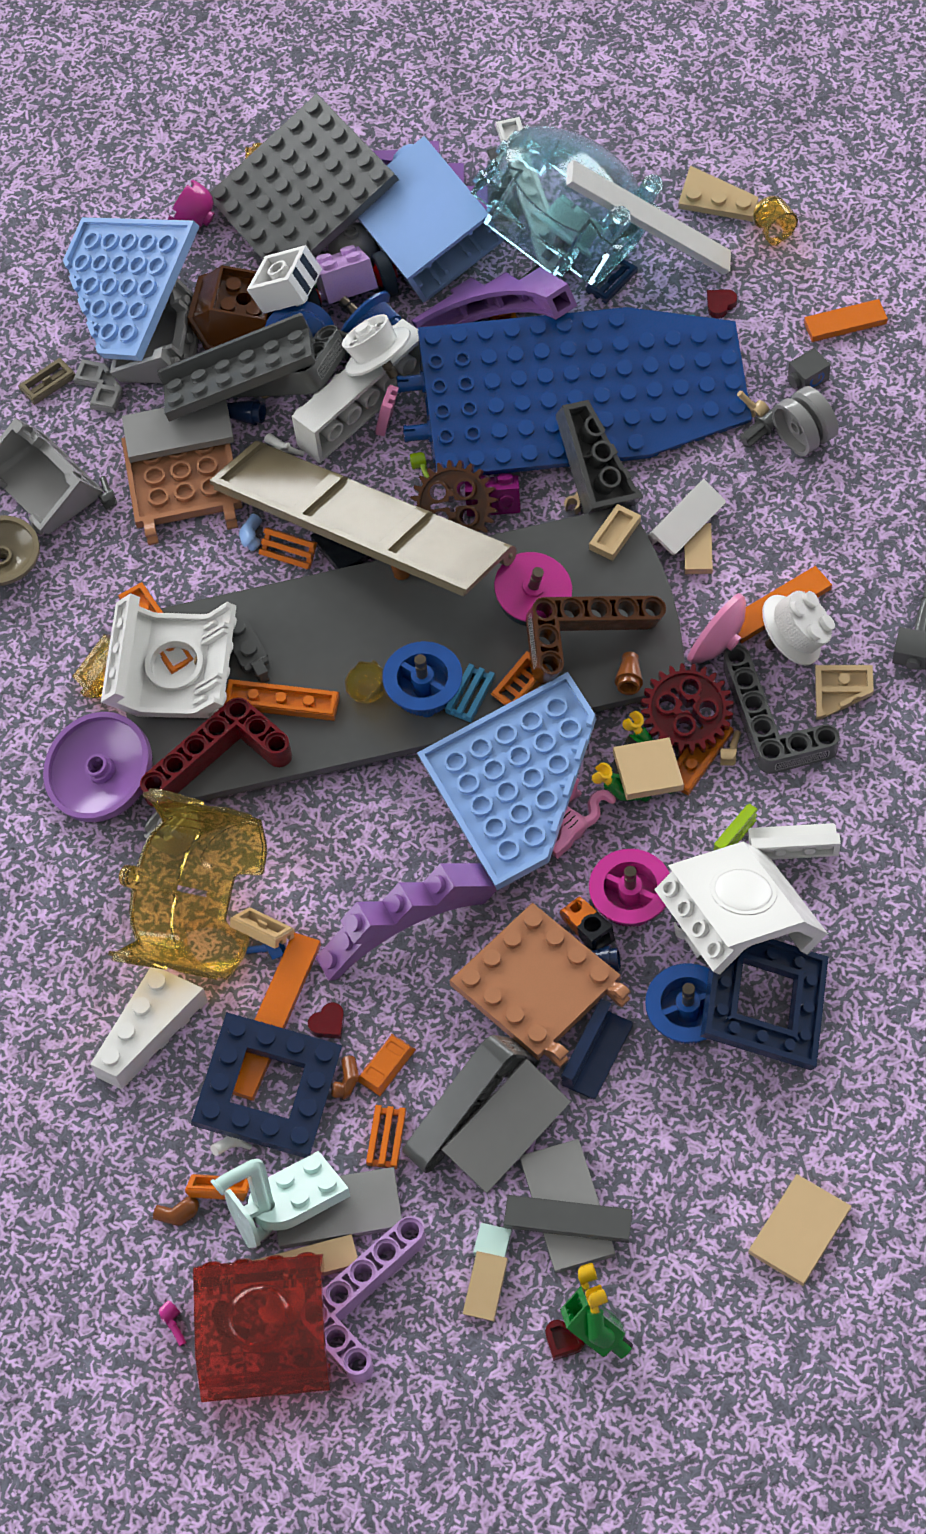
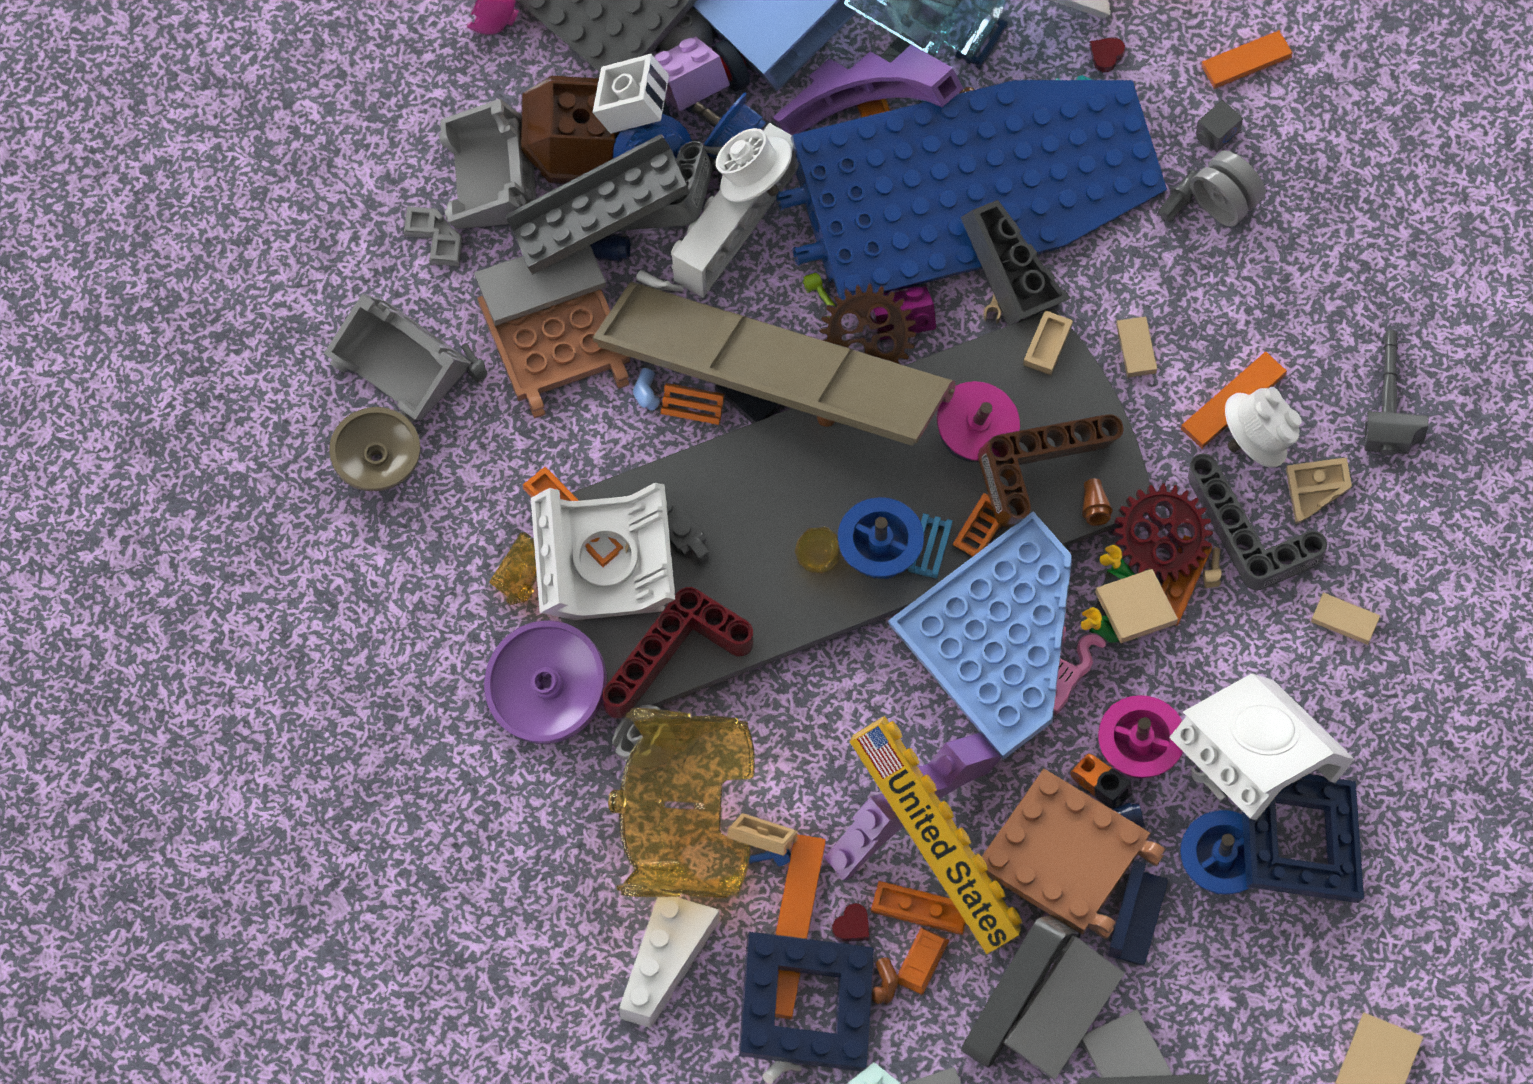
camera: 15 degrees left, 5 degrees up
(49, 383) = (365, 259): dark tan tile -> none
(126, 278) = (442, 106): light blue plate -> none
(286, 699) = (734, 579): orange tile -> none
(386, 410) = (769, 231): bright pink tile -> none
(389, 1112) = (938, 1010): orange tile -> none
(395, 1015) = (917, 907): none -> orange tile
(413, 945) = (936, 835): none -> yellow brick
(687, 517) = (1119, 313): white panel -> none
(720, 631) = (1186, 445): bright pink dish -> none
(737, 828) = (1236, 659): lime tile -> none
(759, 408) = (1172, 175): tan hand -> none
(796, 841) = (1299, 660): white panel -> none
(846, 809) = (1345, 618): none -> tan tile

